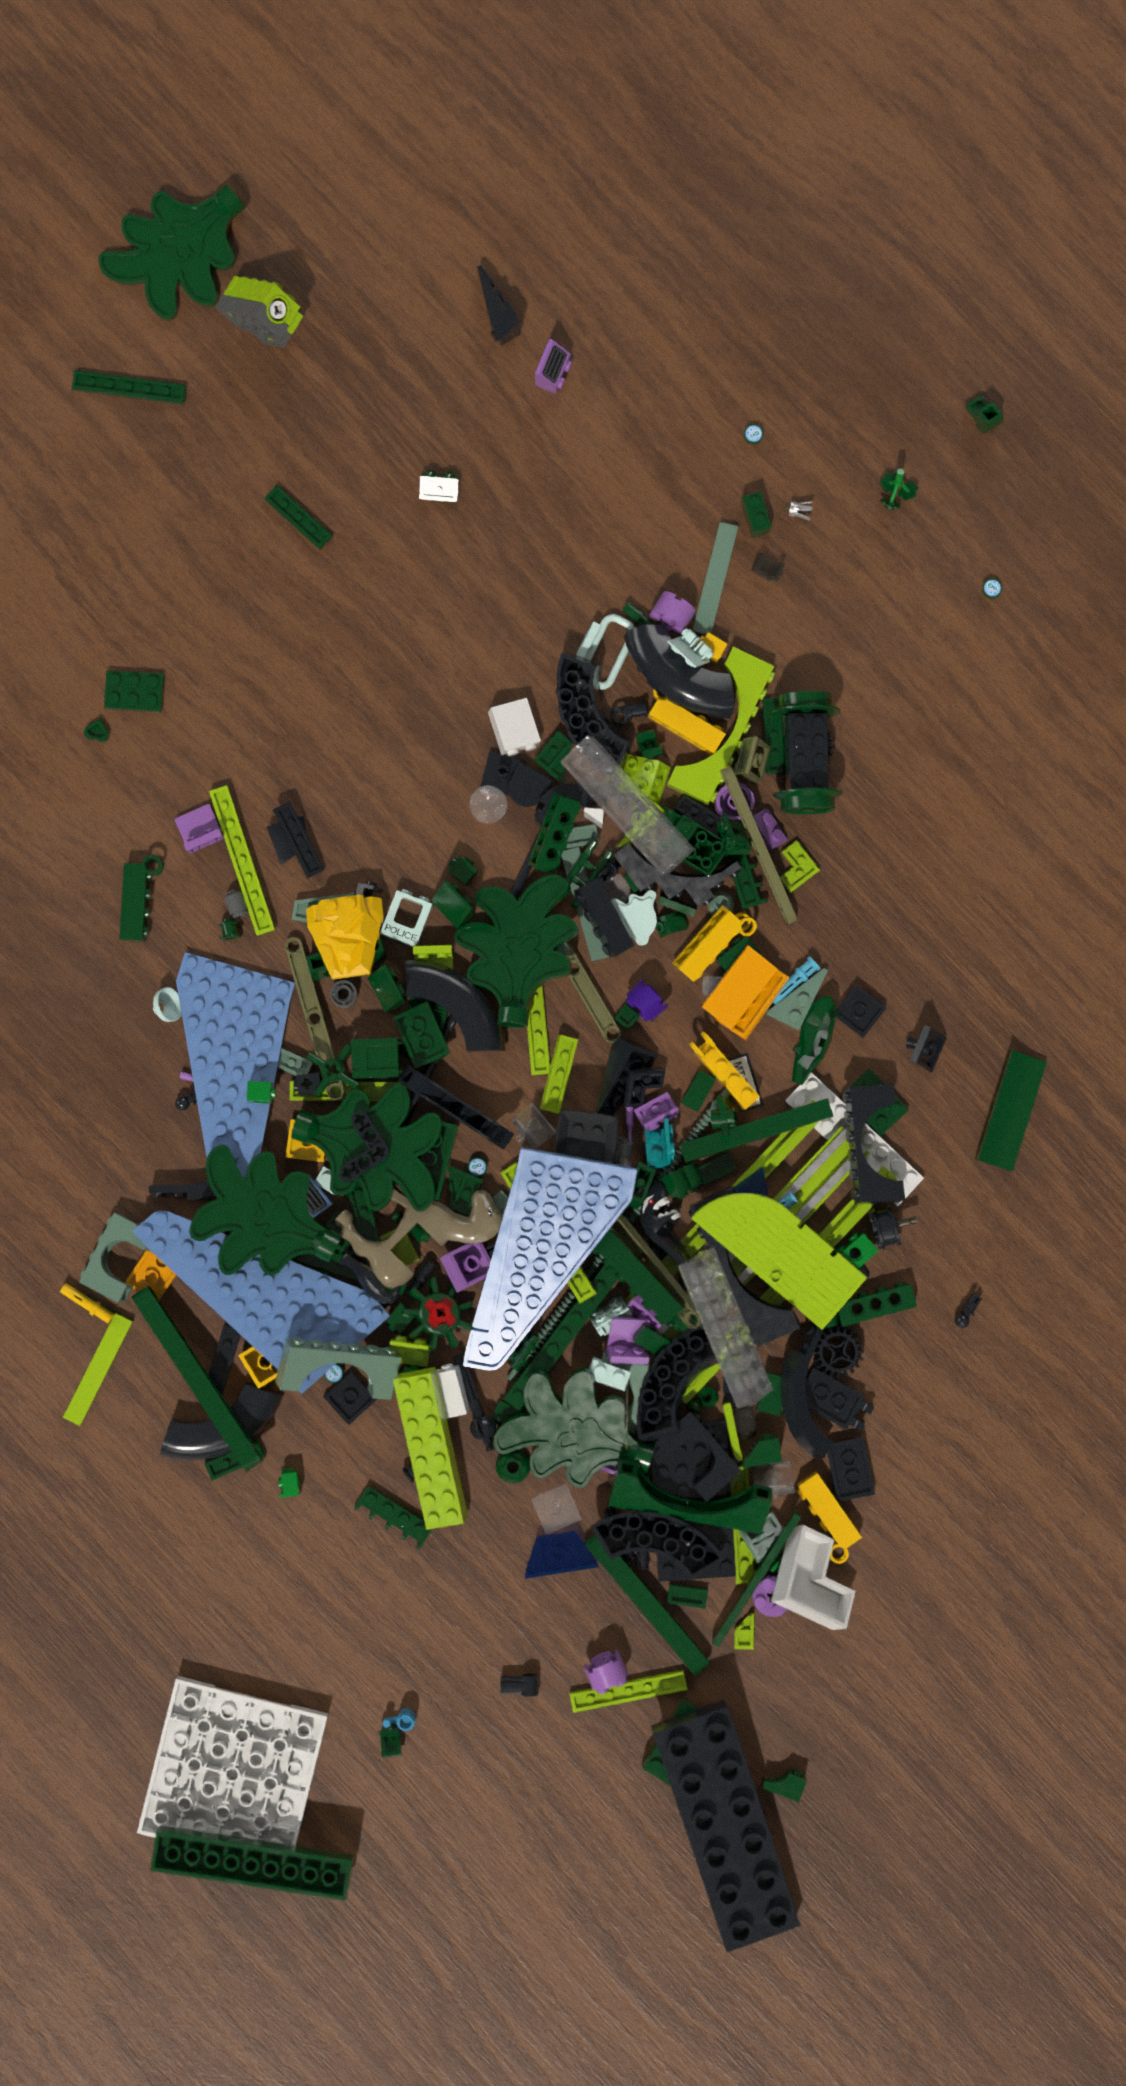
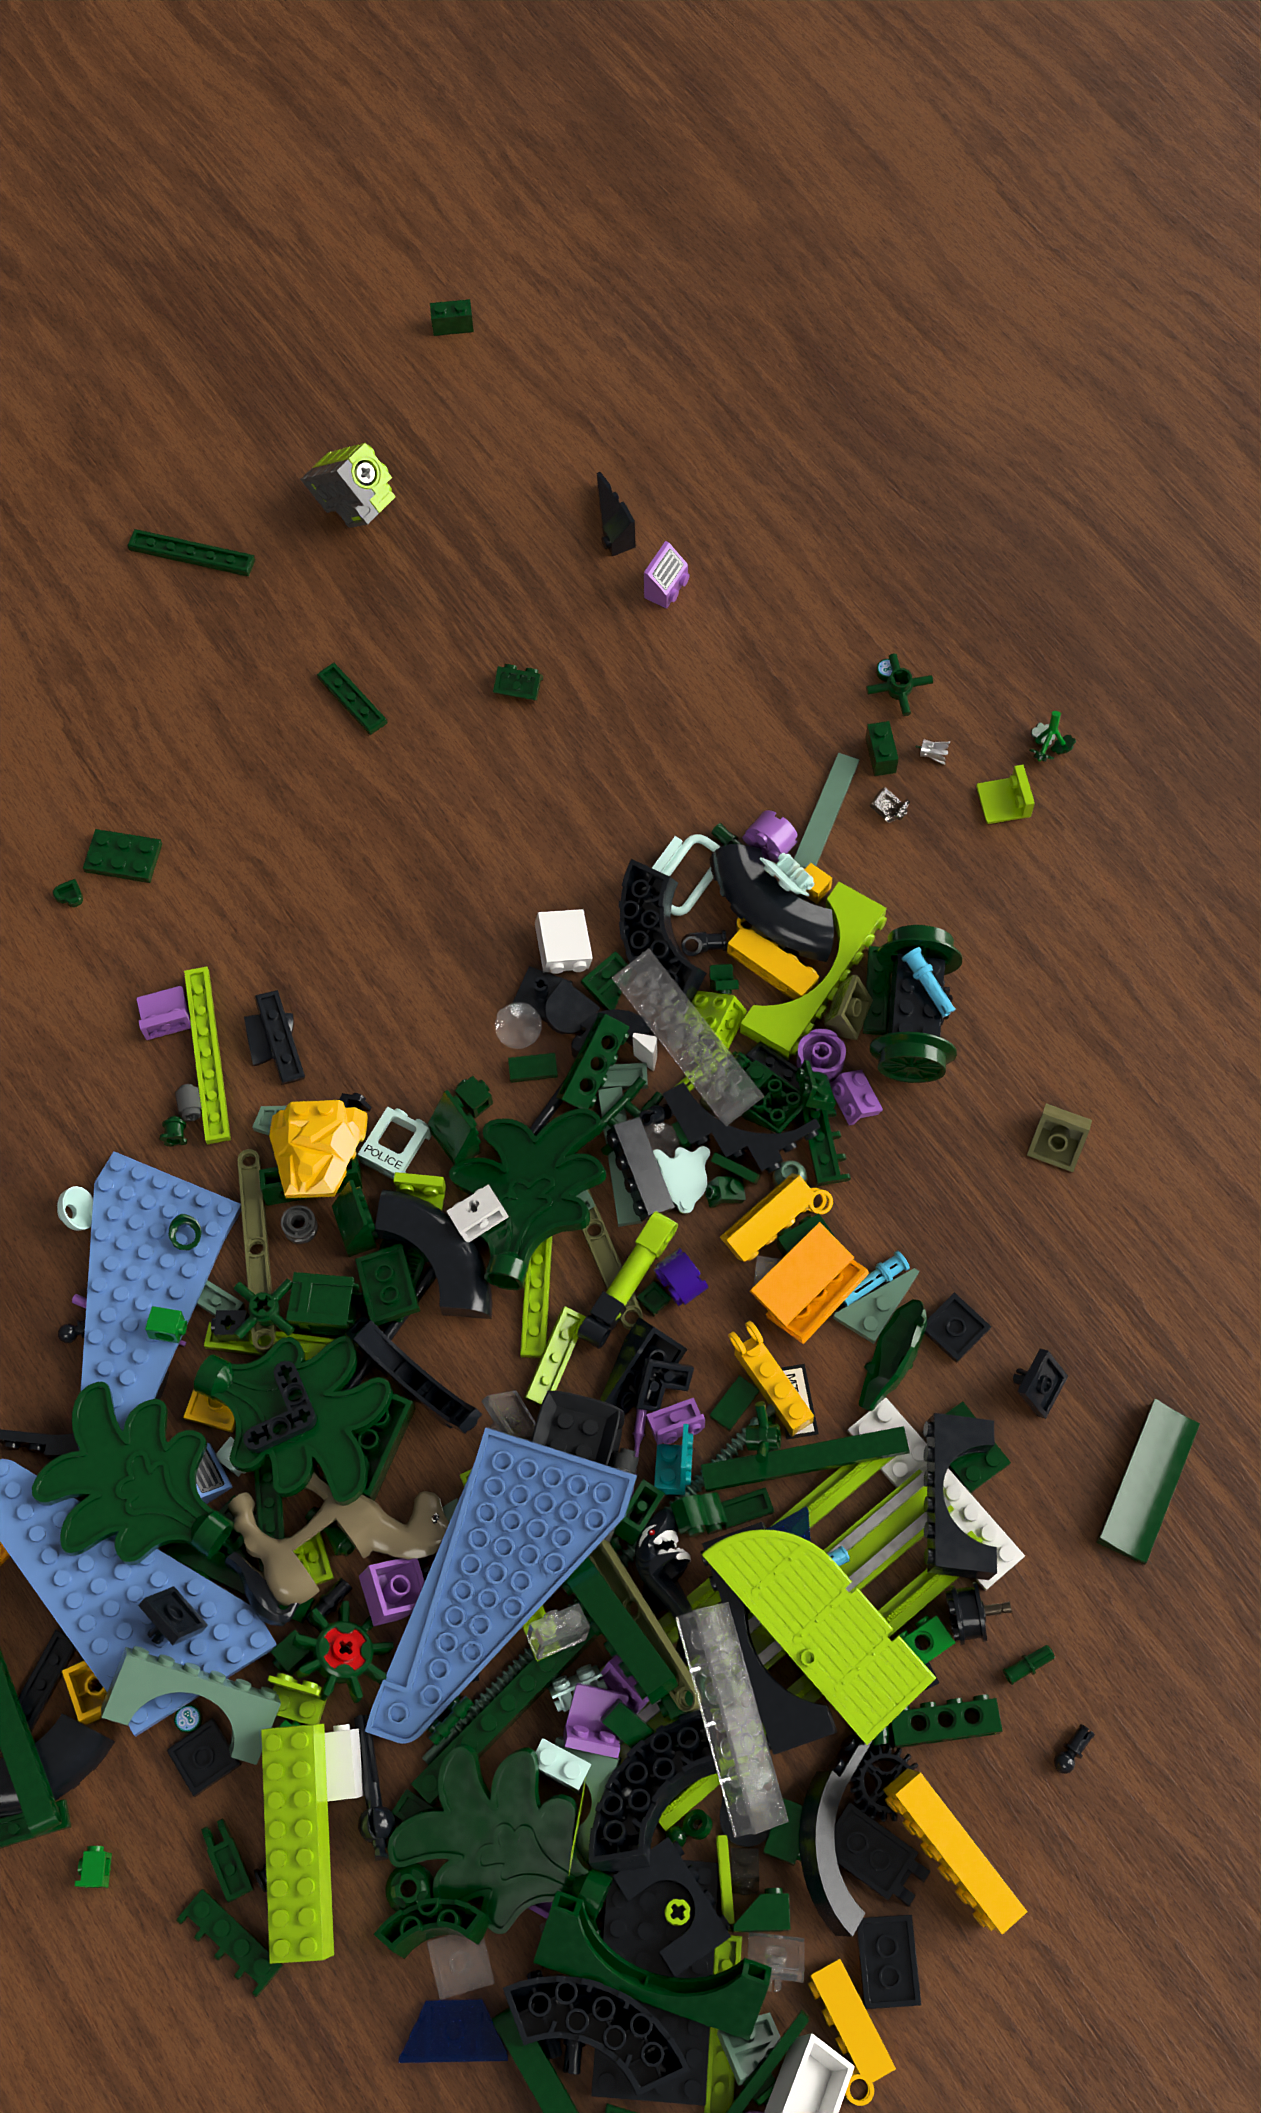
camera: 10 degrees right, 20 degrees down
(135, 899) = (67, 1082): dark green hinge -> none
(176, 248) = (272, 427): dark green plant -> none
(254, 1004) = (184, 1219): none -> dark green piece
(313, 1311) = (171, 1617): none -> black tile
(318, 107) = (451, 317): none -> dark green brick
(382, 1466) = (228, 1863): none -> dark green hinge
(461, 1189) = (403, 1489): dark green wing -> none
(477, 1167) = (430, 1464): tile -> none
(492, 970) = (477, 1213): none -> white brick
(505, 838) = (532, 1067): none -> dark green tile
(530, 1484) = (430, 1919): none -> dark green brick
(593, 1283) = (557, 1631): none -> clear brick
(606, 1008) = (611, 1305): none -> lime piece
(708, 1457) = (668, 1911): none -> lime bush
(758, 845) = (846, 1106): olive beam -> none
(769, 443) = (906, 685): none -> dark green bar
(802, 867) = (897, 1146): lime tile -> none
(810, 730) = (923, 972): none -> medium azure pin
(863, 548) = (1007, 797): none -> lime bracket
(888, 1394) = (954, 1851): none -> yellow brick
(928, 846) = (1059, 1137): none -> olive slope
(932, 1255) = (1028, 1664): none -> dark green axle
(985, 415) = (1160, 674): dark green brick -> none
(991, 588) = (1157, 858): tile -> none

